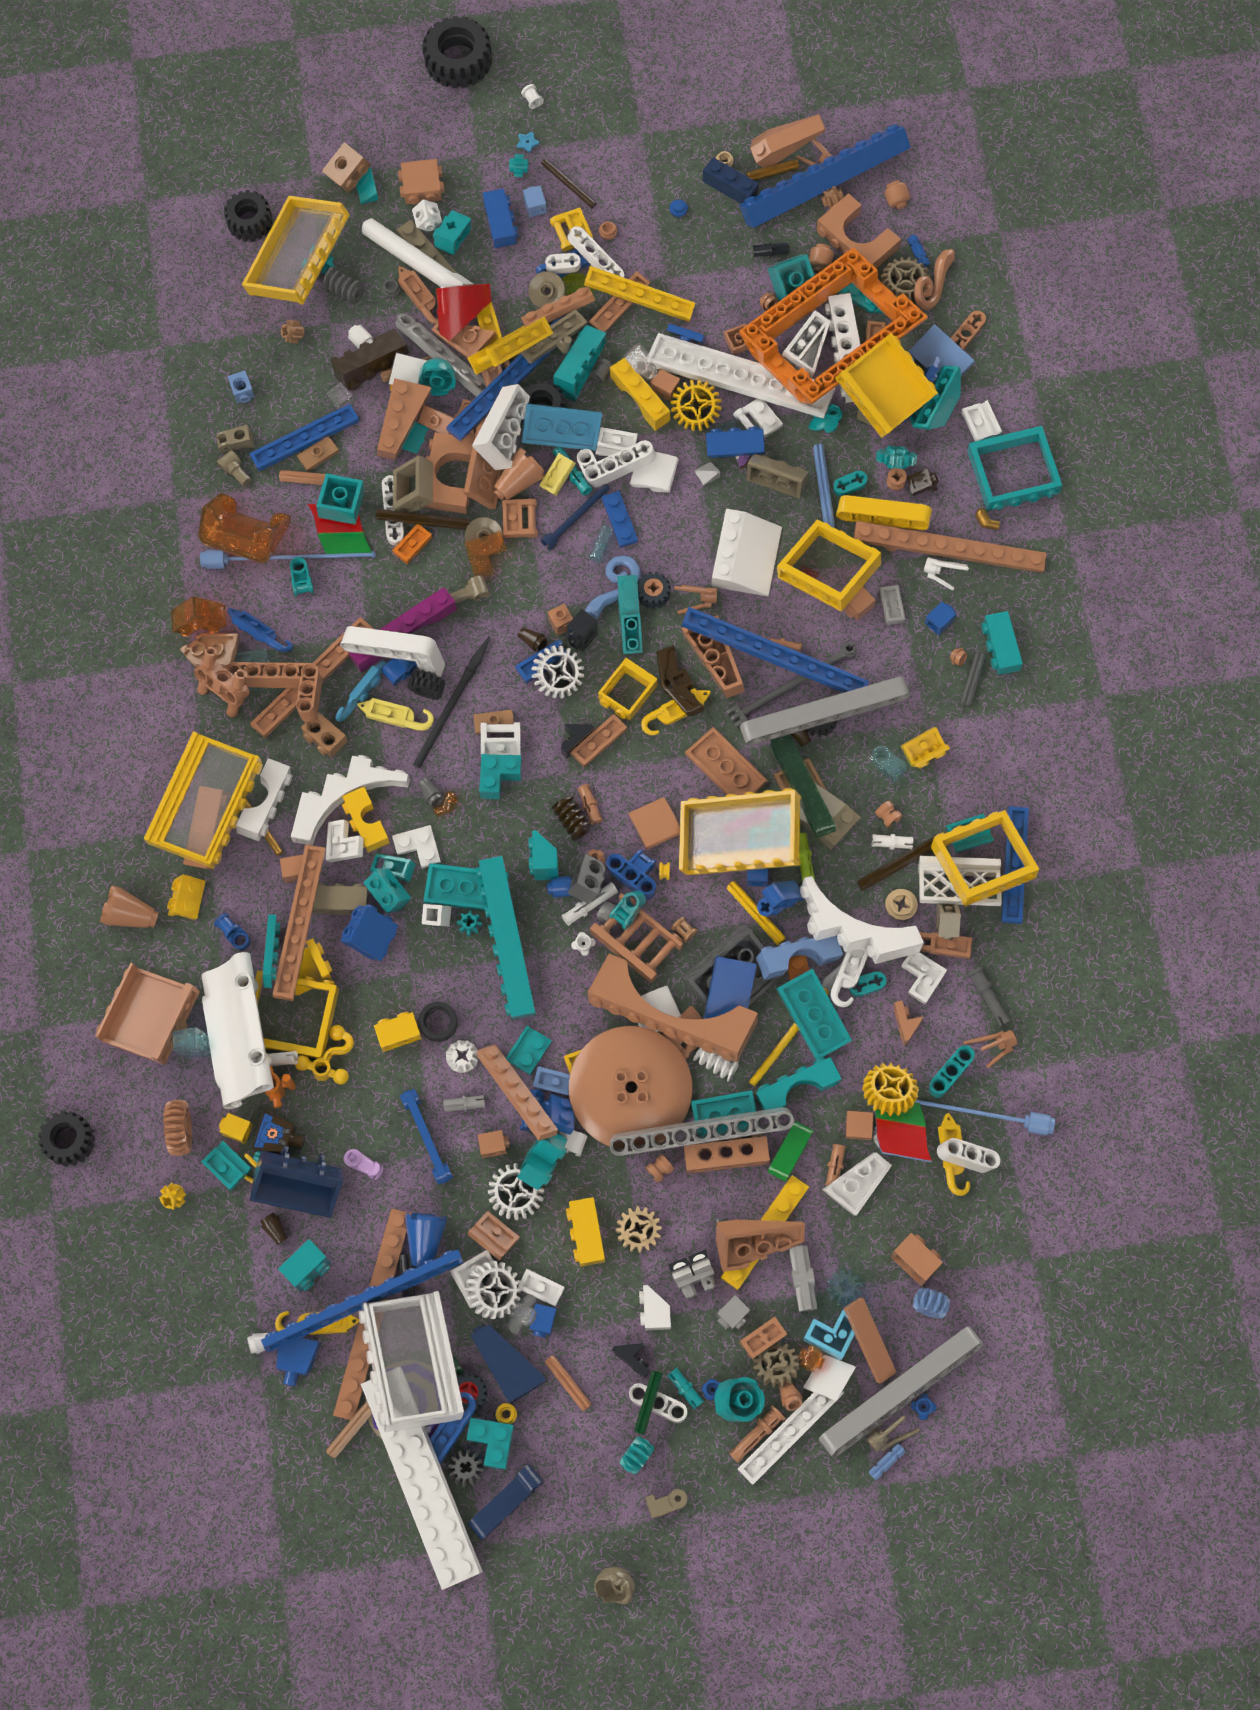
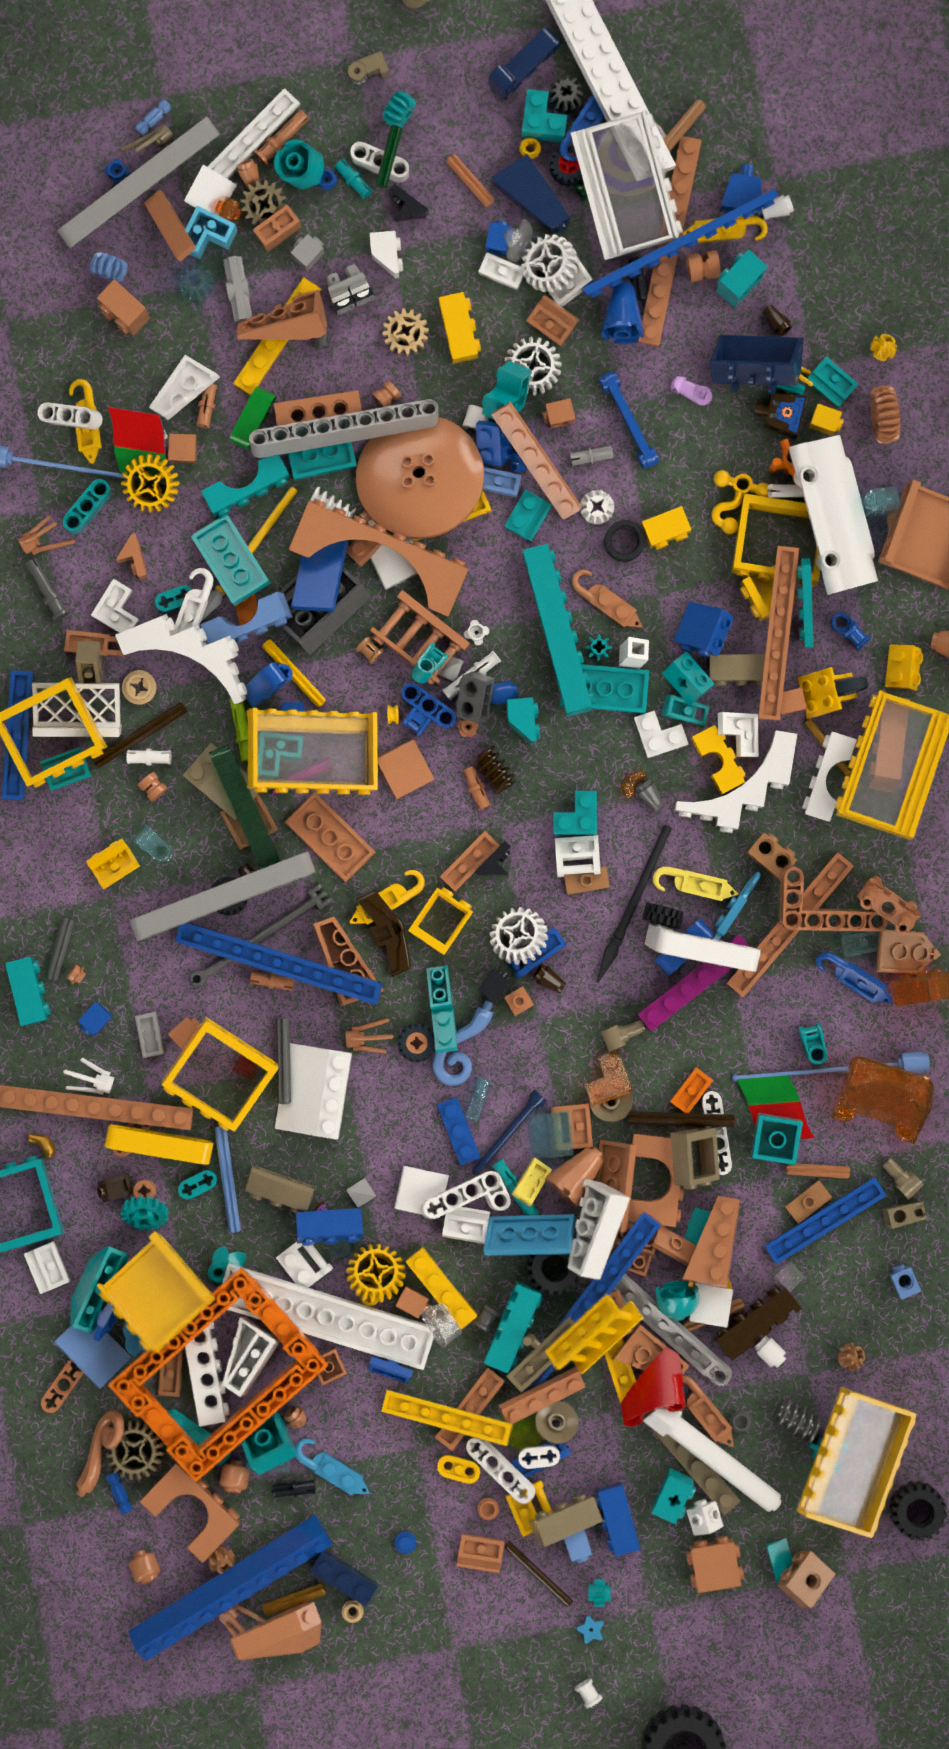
camera: 170 degrees right, 15 degrees up
(260, 873) = (822, 692): none -> yellow plate
(349, 1283) = (703, 266): none -> nougat wheel
(459, 967) = (606, 602): none -> nougat plate
(538, 511) = (550, 1135): none -> clear light blue slope
(543, 215) = (565, 1520): none -> dark tan brick
(616, 198) = (480, 1553): none -> nougat plate
(632, 258) = (458, 1469): none -> yellow plate
(738, 263) = (332, 1470): none -> dark azure plate
(772, 579) = (283, 1061): none -> dark grey axle

